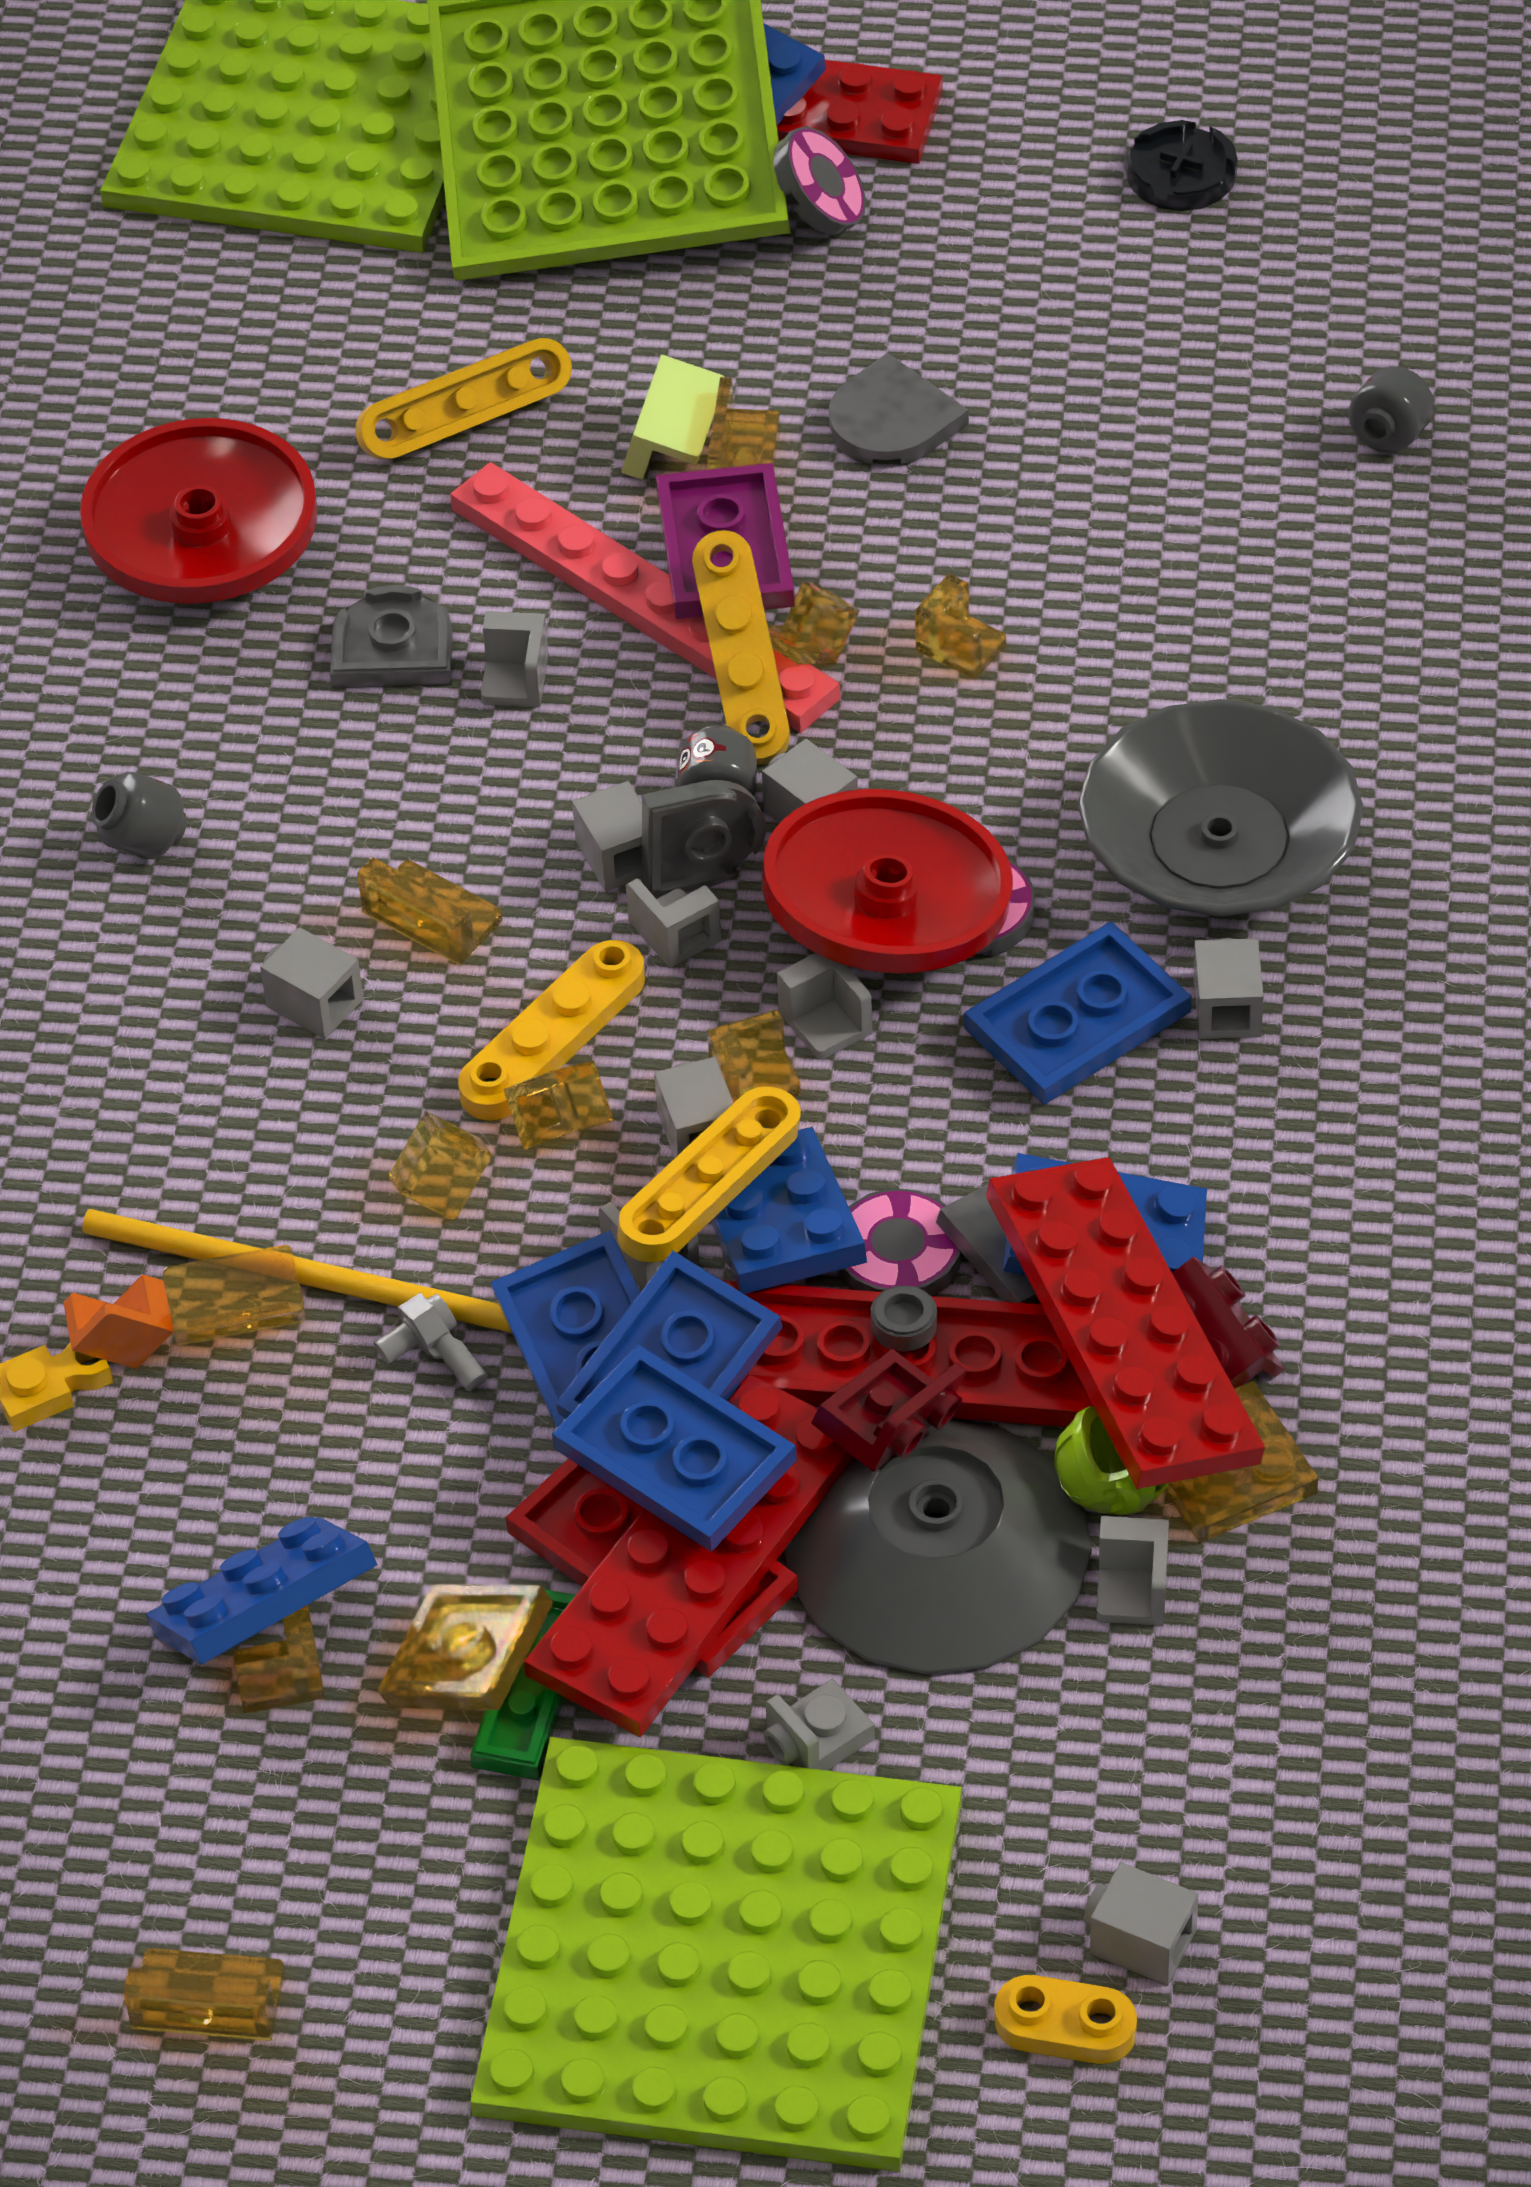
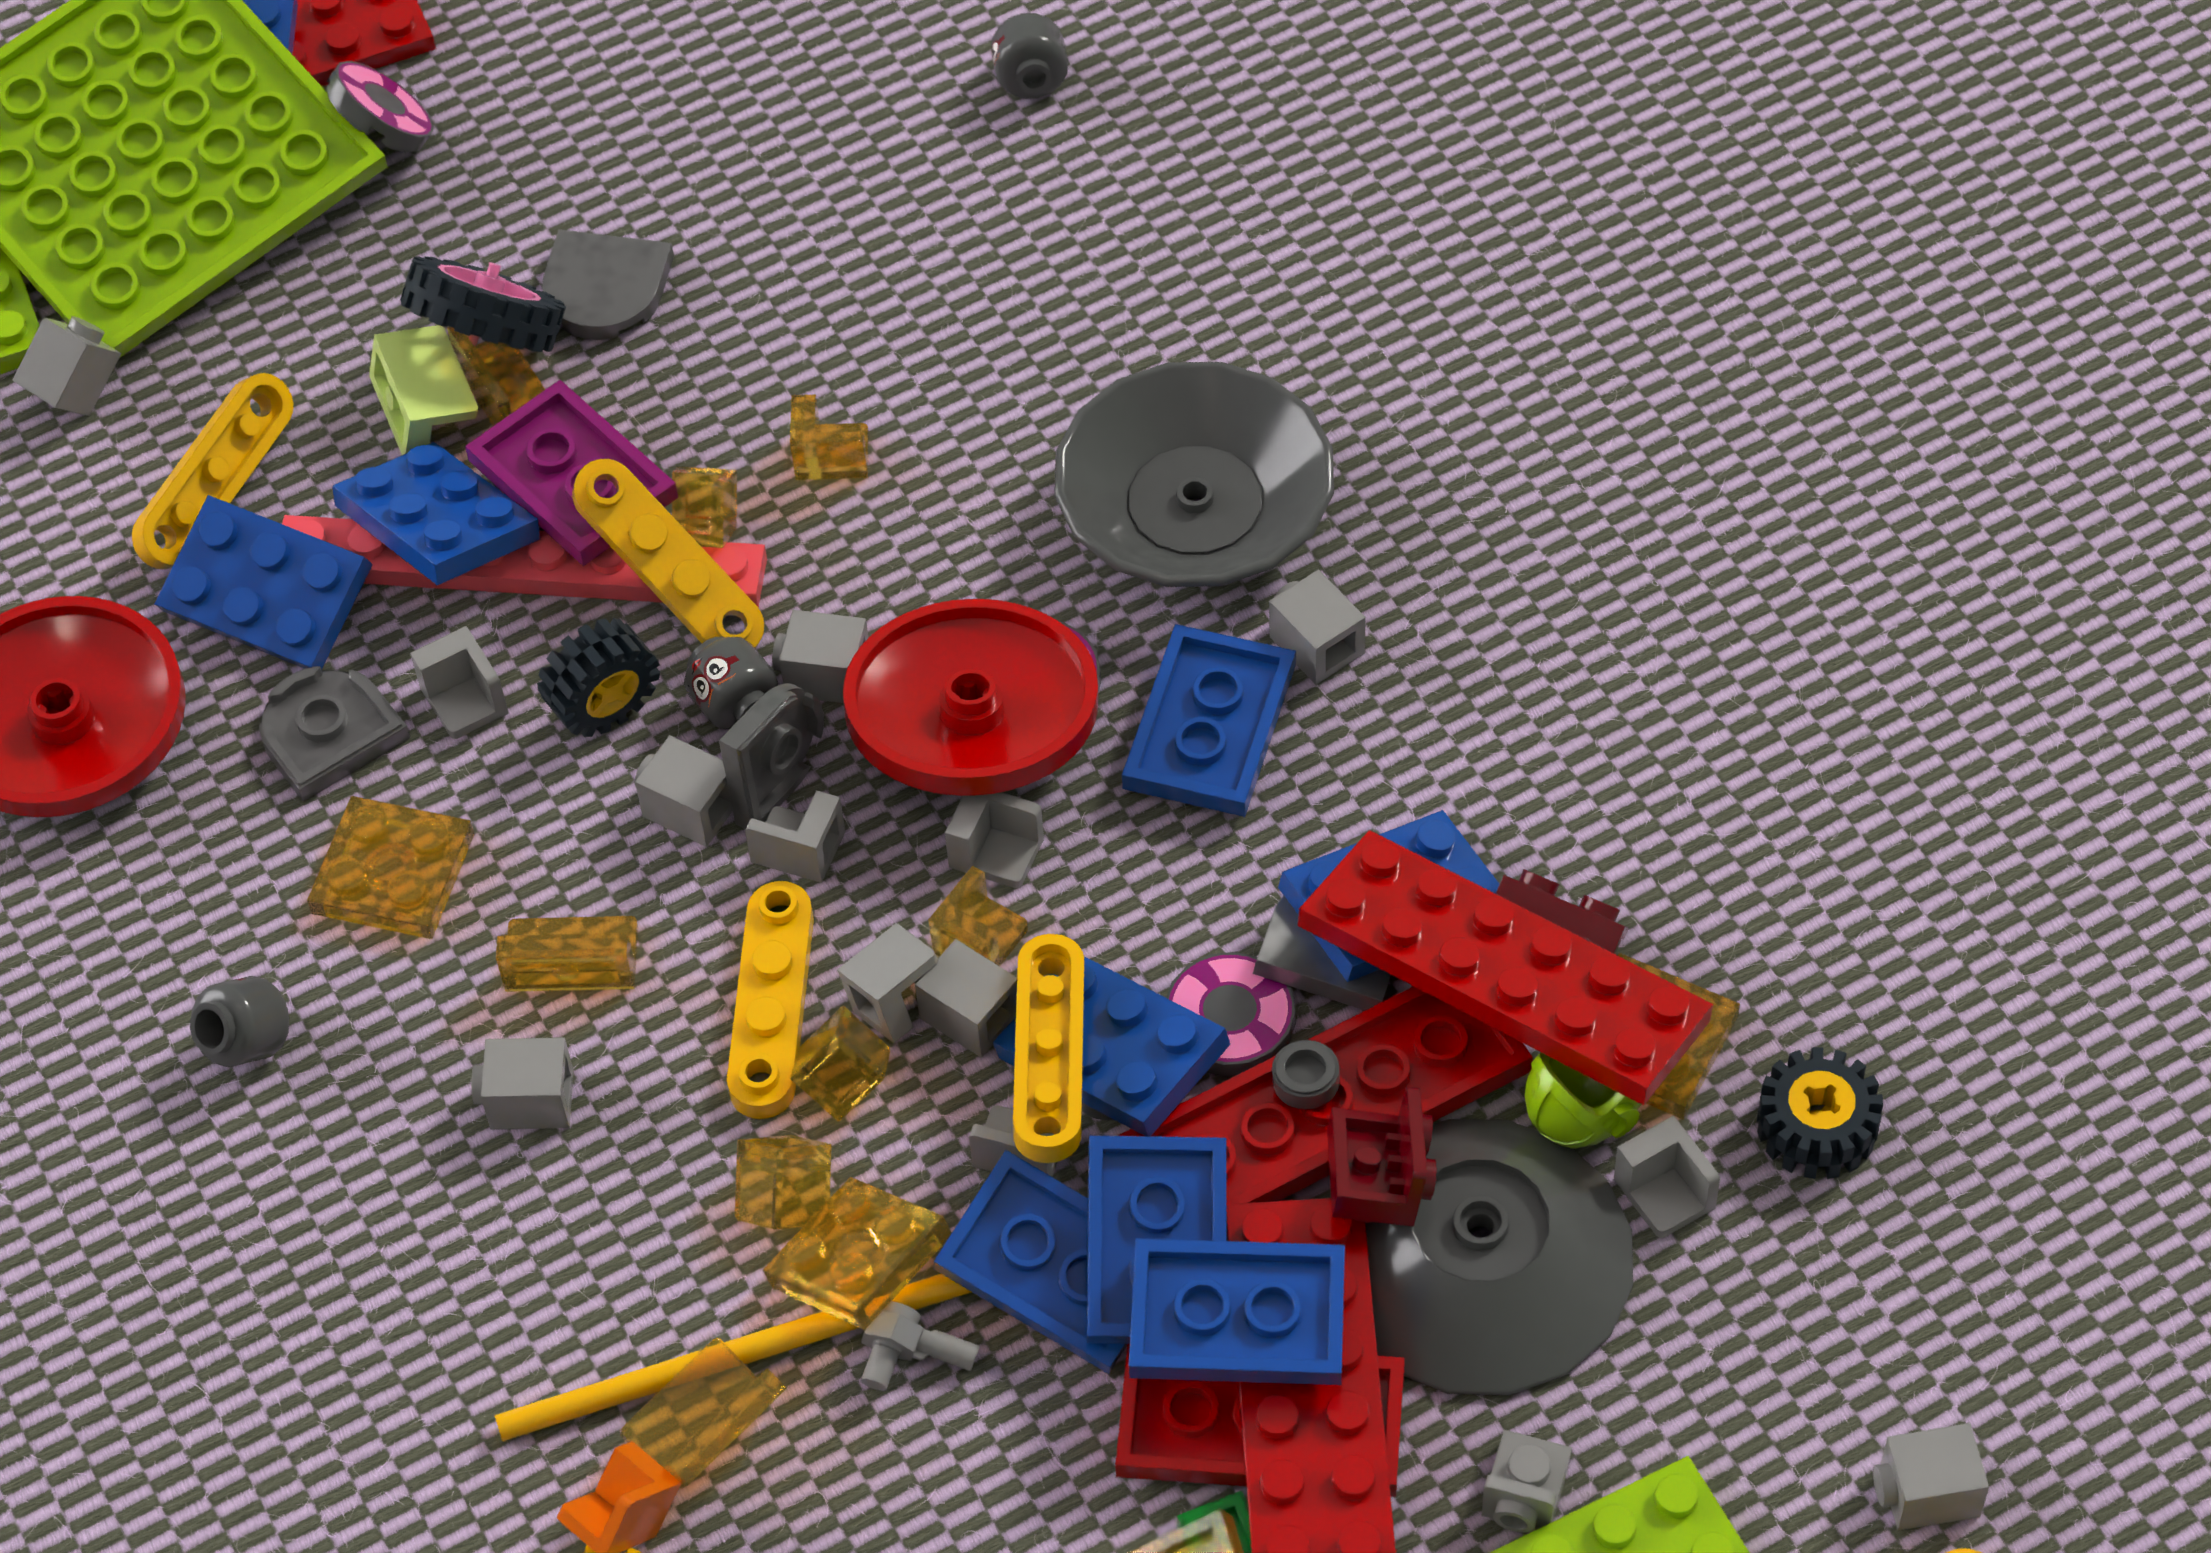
camera: 35 degrees left, 5 degrees up
(352, 771) = (391, 867): none -> clear yellow plate
(416, 259) = (67, 365): none -> light grey brick
(428, 504) = (263, 584): none -> blue plate
(446, 1246) = (857, 1252): none -> clear yellow plate
(599, 517) = (435, 512): none -> blue plate
(614, 709) = (598, 677): none -> black wheel
(637, 1053) = (881, 974): none -> light grey panel
(762, 373) = (482, 304): none -> black wheel
(1286, 1615) = (1822, 1137): none -> black wheel

